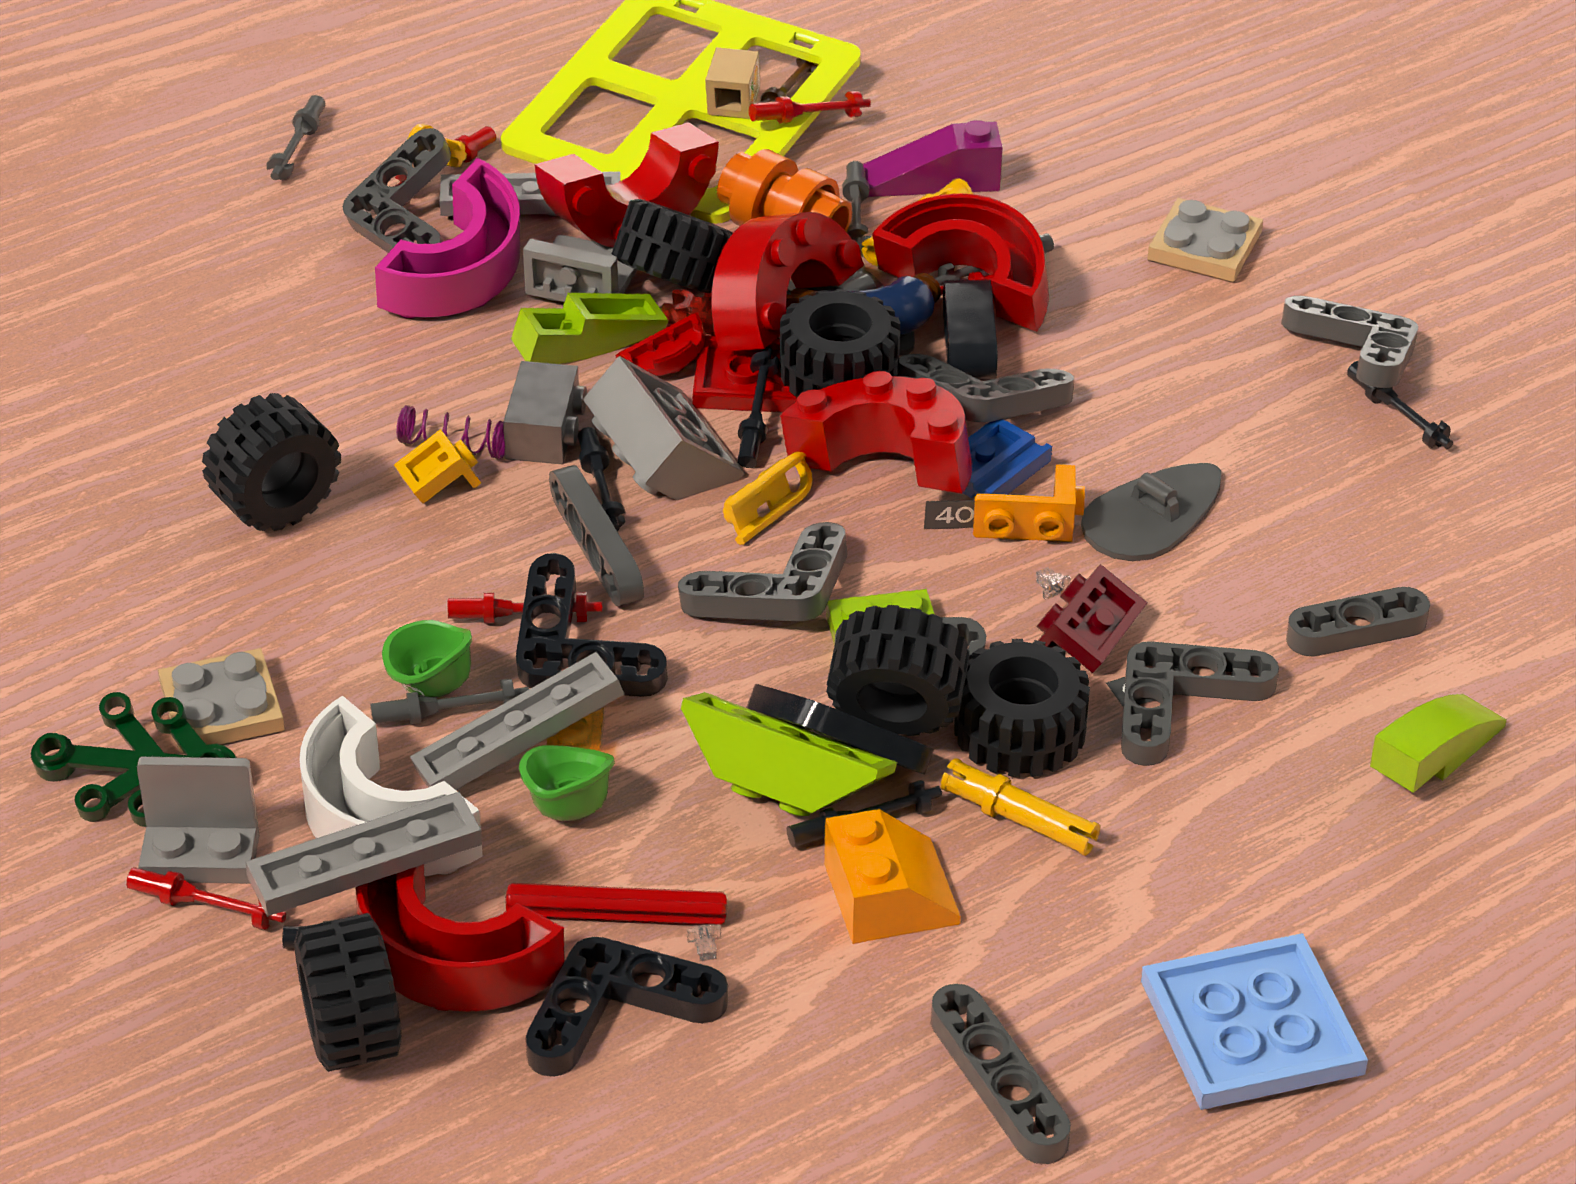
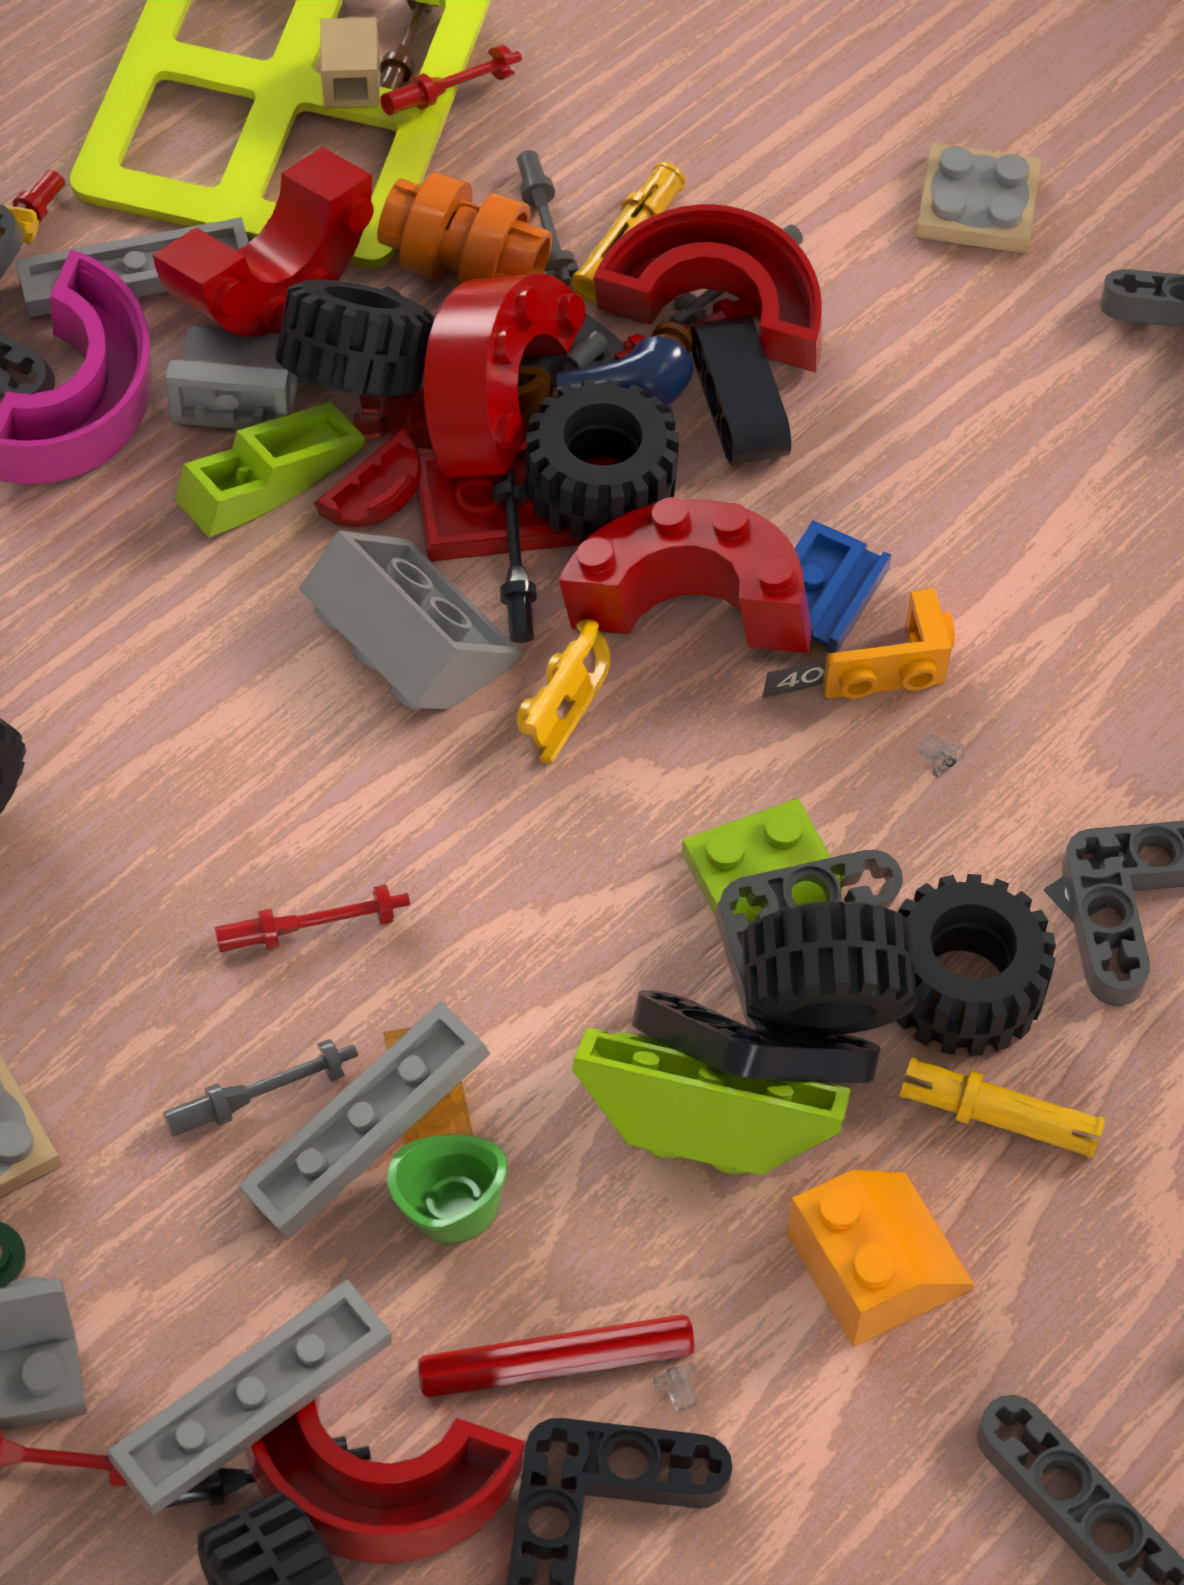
camera: 15 degrees left, 15 degrees up
(336, 768) = (183, 1294): white brick -> none
(406, 425) = (81, 663): magenta piece -> none
(428, 657) = (220, 1030): bright green helmet -> none
(437, 465) = (141, 723): yellow bracket -> none
(543, 412) = (251, 613): flat silver brick -> none
(555, 642) = (367, 971): black beam -> none
(595, 460) = (333, 672): black piece -> none
(596, 535) = (372, 793): dark grey beam -> none
(791, 596) = (624, 837): dark grey beam -> none
(815, 828) = (785, 1179): black piece -> none
(931, 162) = (631, 135): magenta slope -> none
(995, 397) = (789, 501): dark grey beam -> none
(1094, 617) = (1006, 806): dark red bracket -> none
(1151, 511) = (1027, 622): dark grey shield -> none

